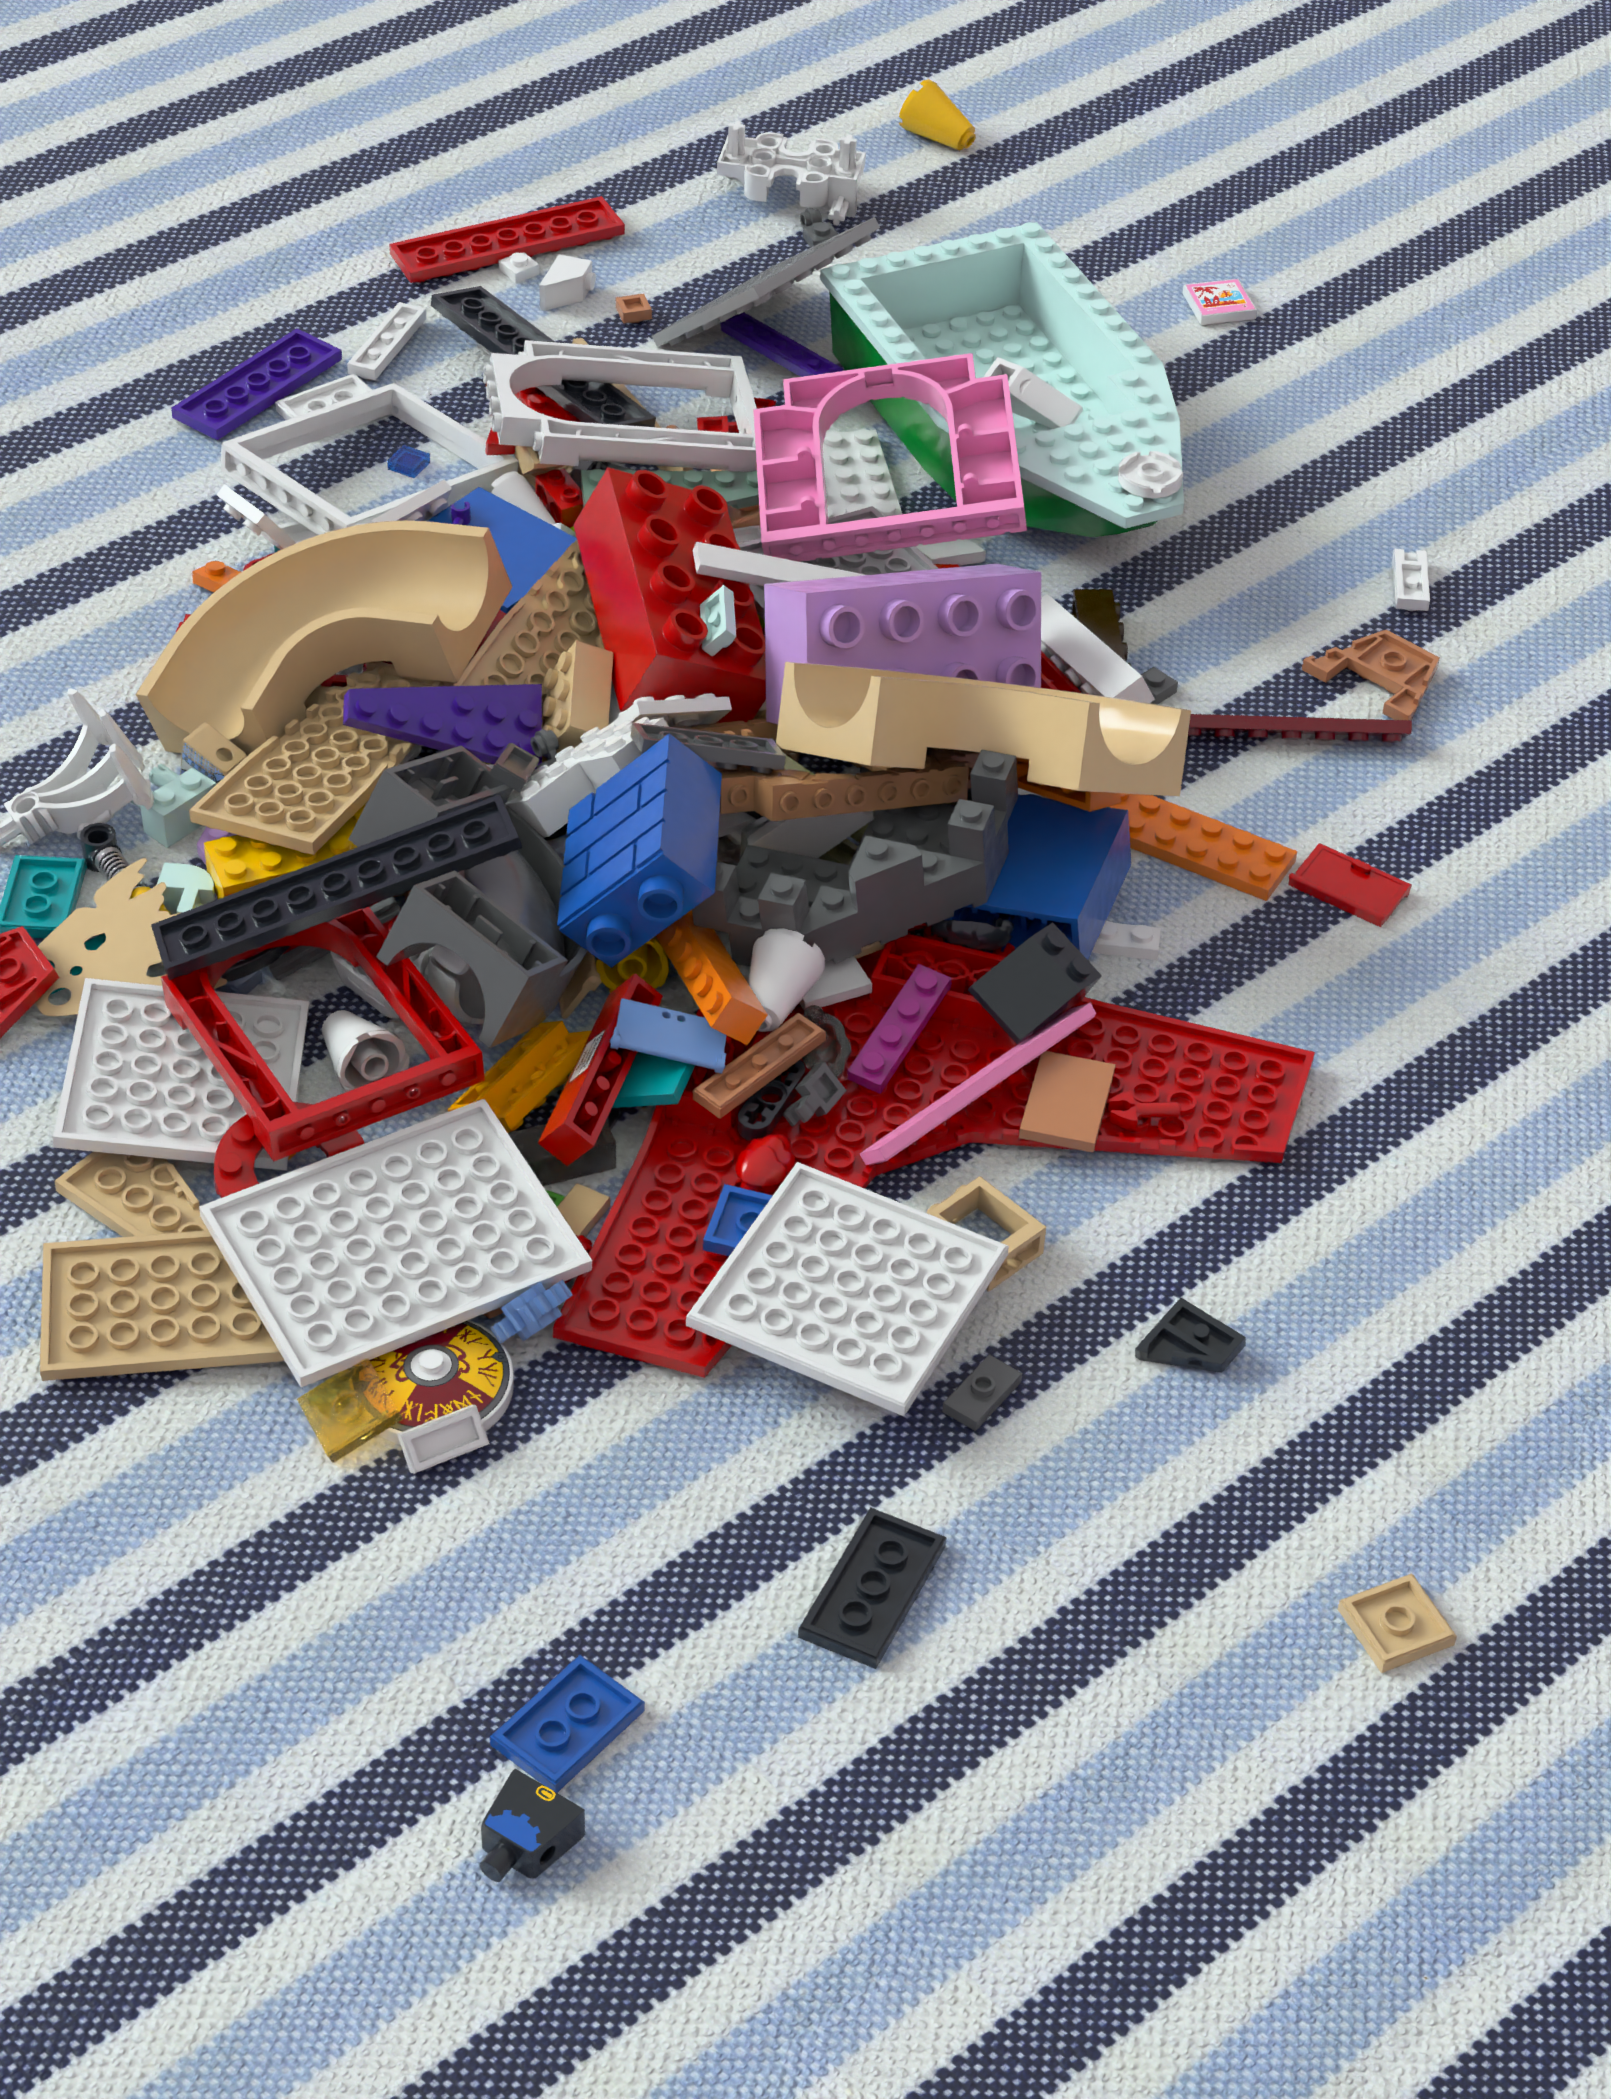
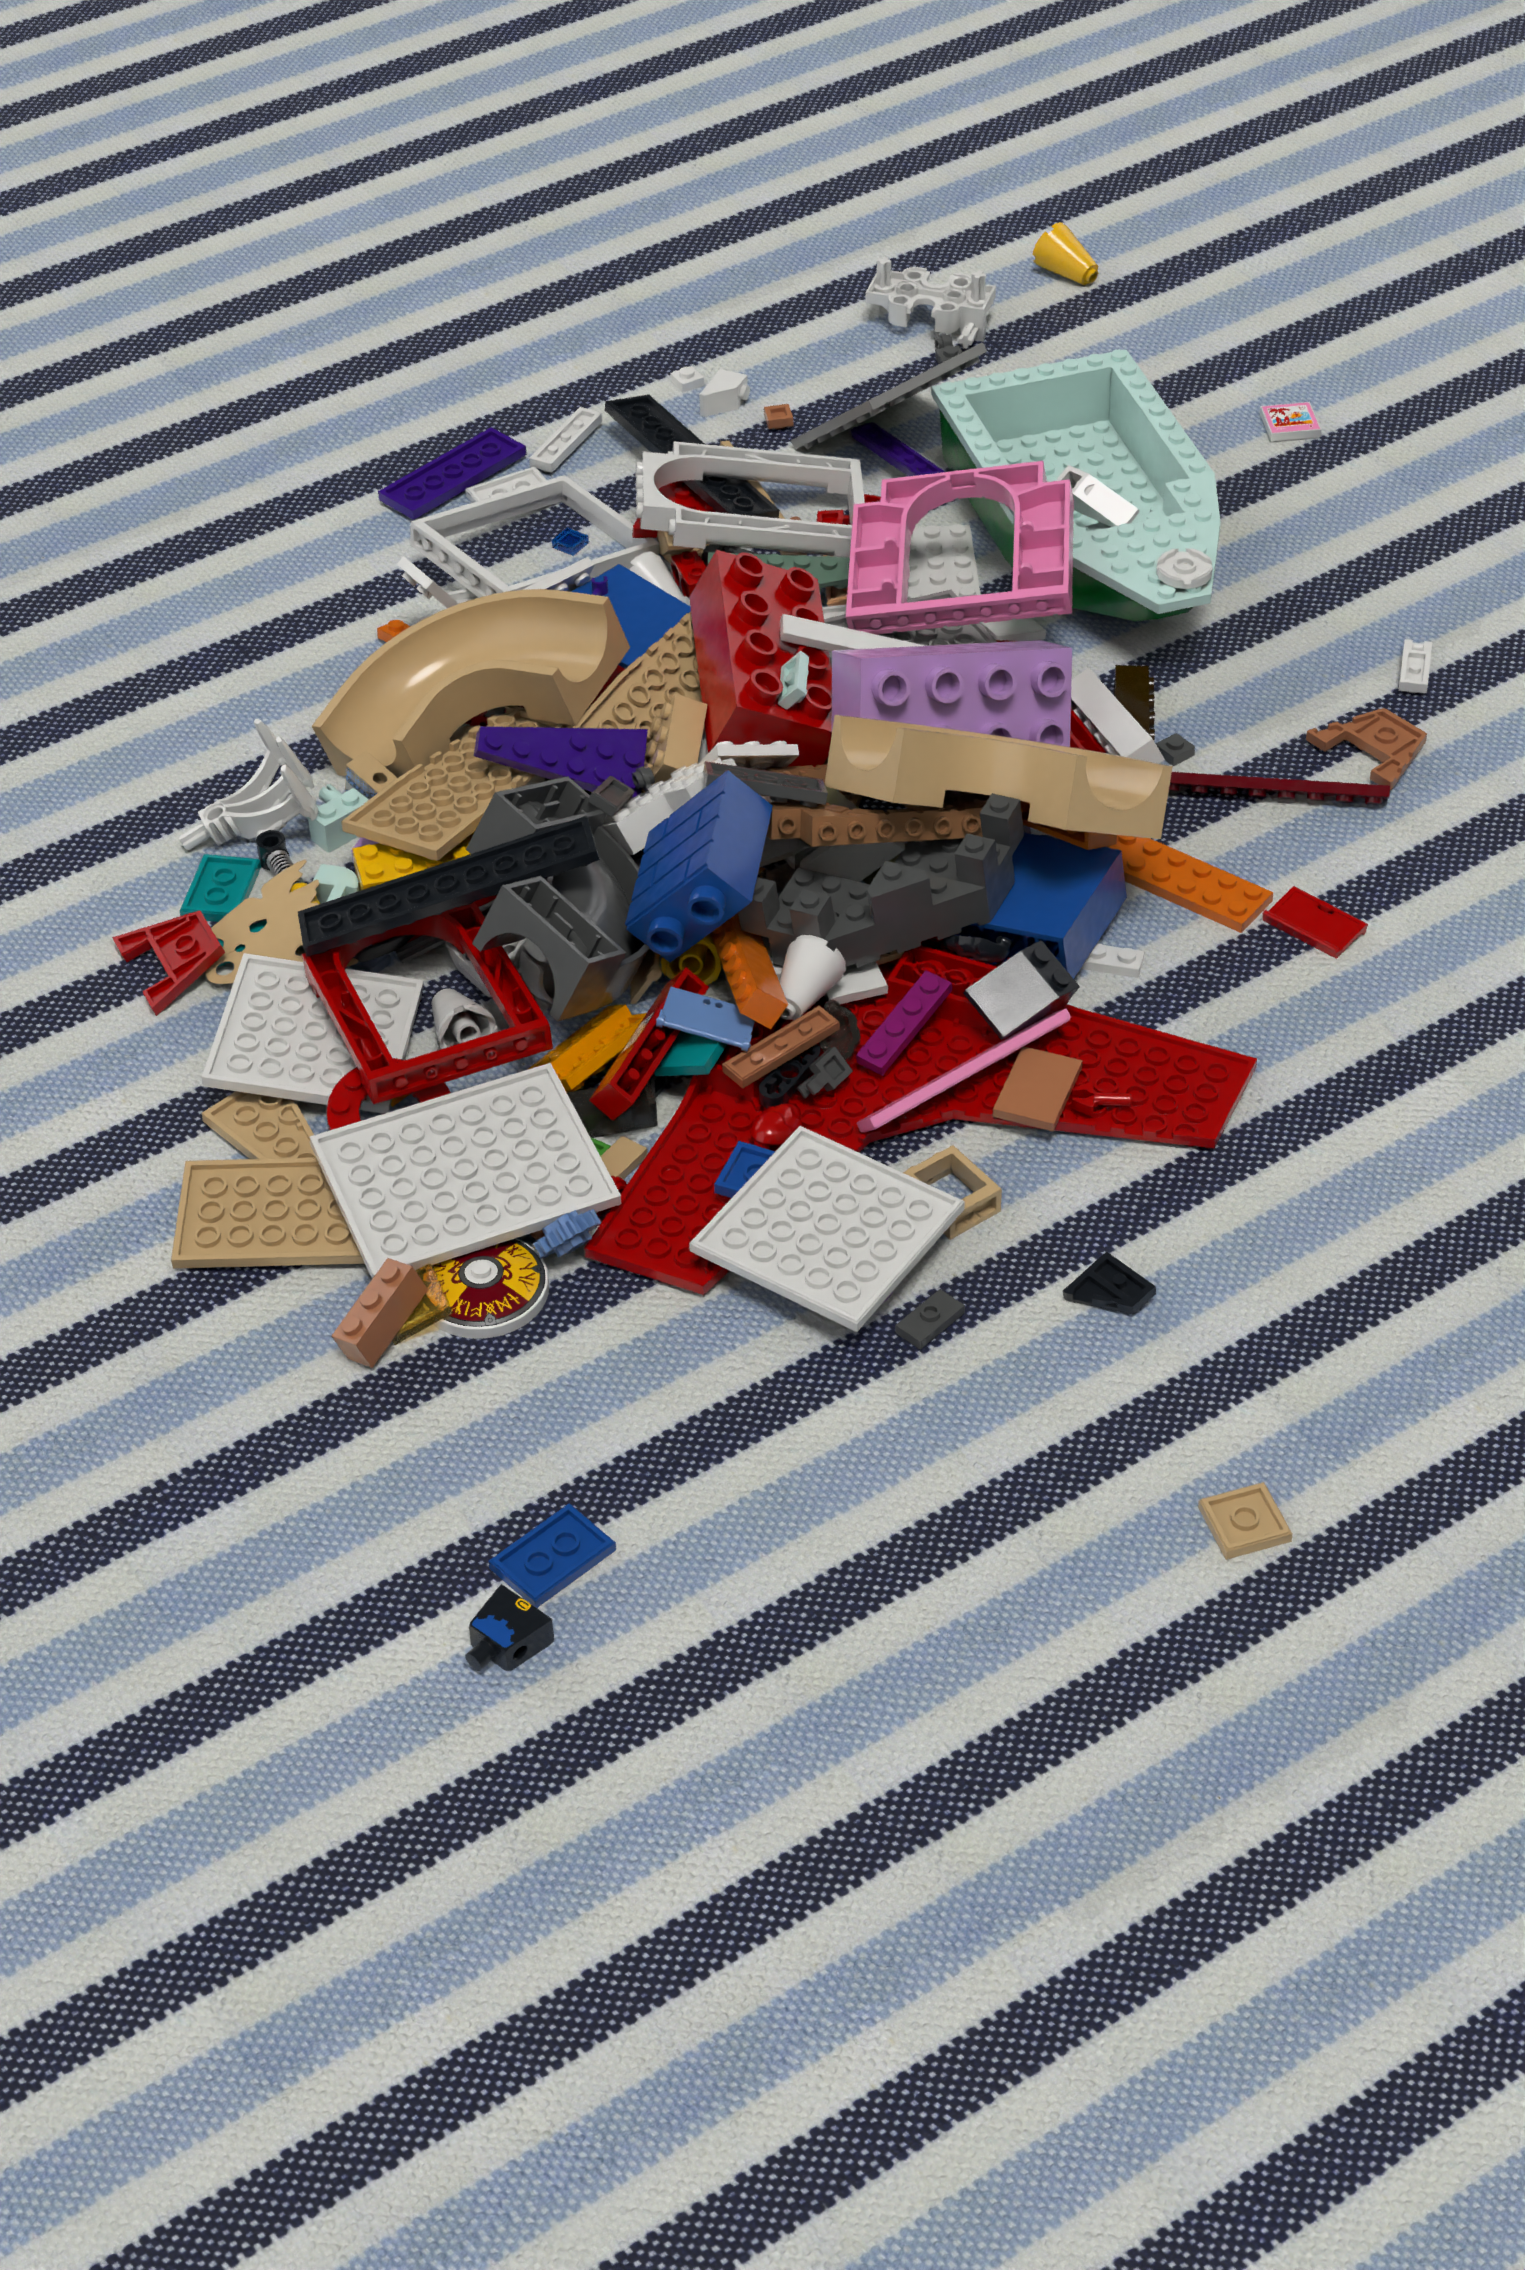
camera: 10 degrees right, 0 degrees up
(313, 1425) = (379, 1312): none -> nougat brick
(443, 1439) = (483, 1330): white tile -> none
(494, 240) = (670, 355): red plate -> none
(872, 1588) = (814, 1466): black tile -> none

